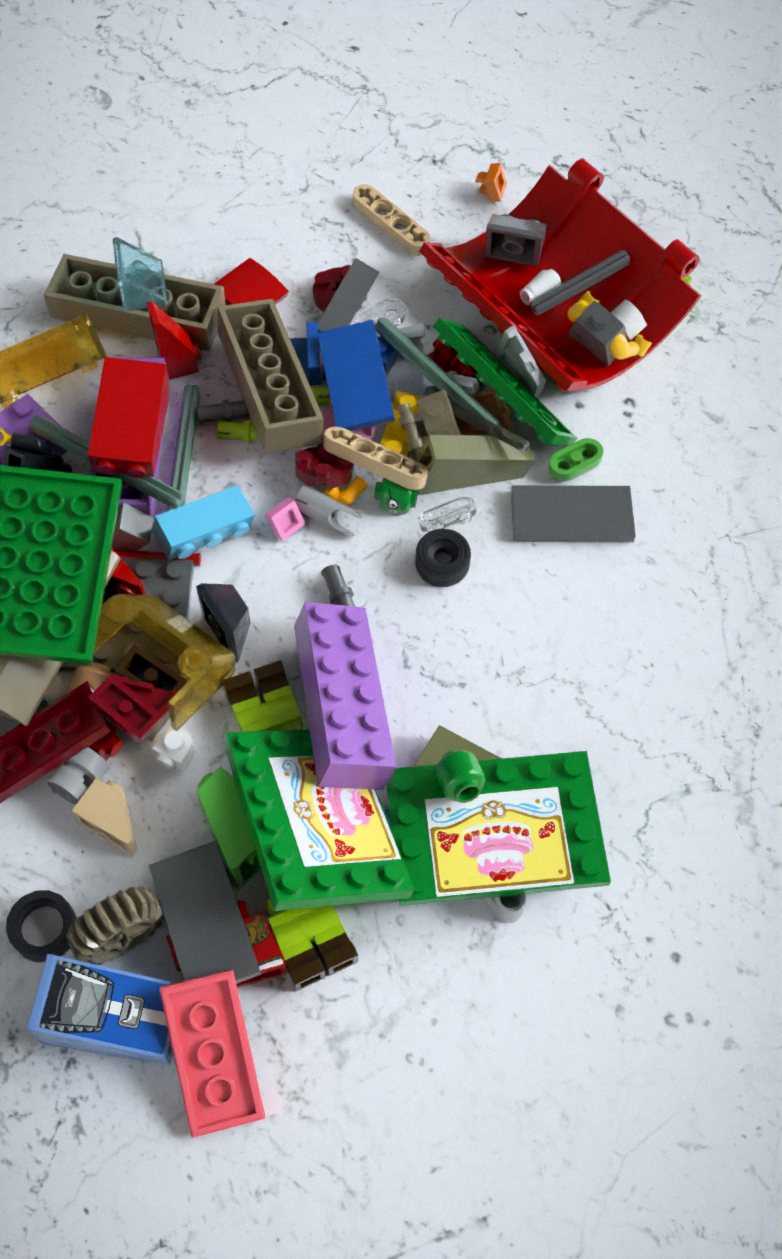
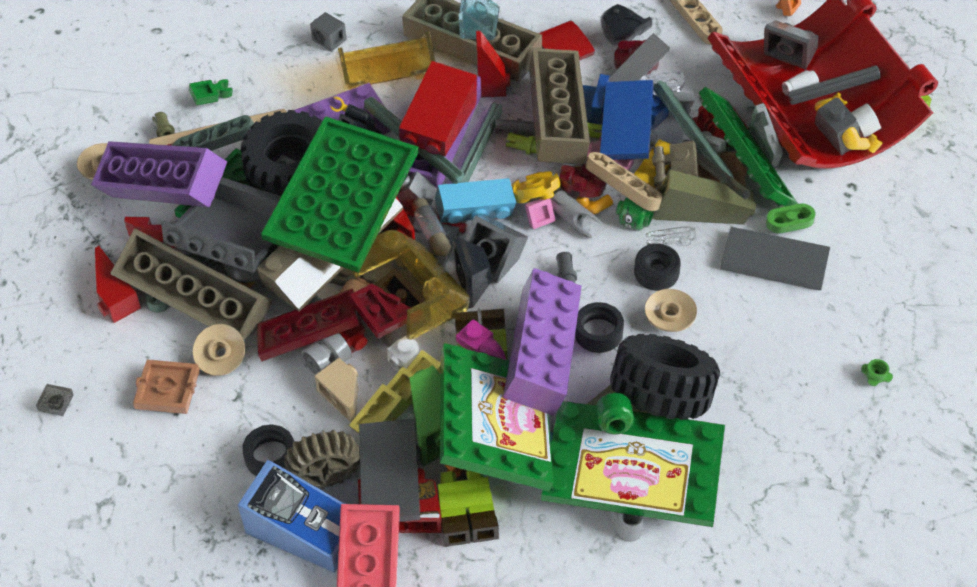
camera: 20 degrees right, 10 degrees down
(159, 570) = (431, 227): none -> piece
(180, 808) = (396, 397): none -> light yellow slope
(248, 570) = (500, 242): none -> dark grey slope
(265, 712) = (479, 339): none -> dark pink plate
(271, 487) = (537, 185): none -> yellow plate
(312, 251) = (623, 24): none -> black helmet
(408, 633) = (601, 311): none -> black tyre
(475, 599) = (670, 302): none -> tan dish
(501, 707) = (665, 376): none -> black tyre
(730, 625) = (877, 366): none -> bright green plate

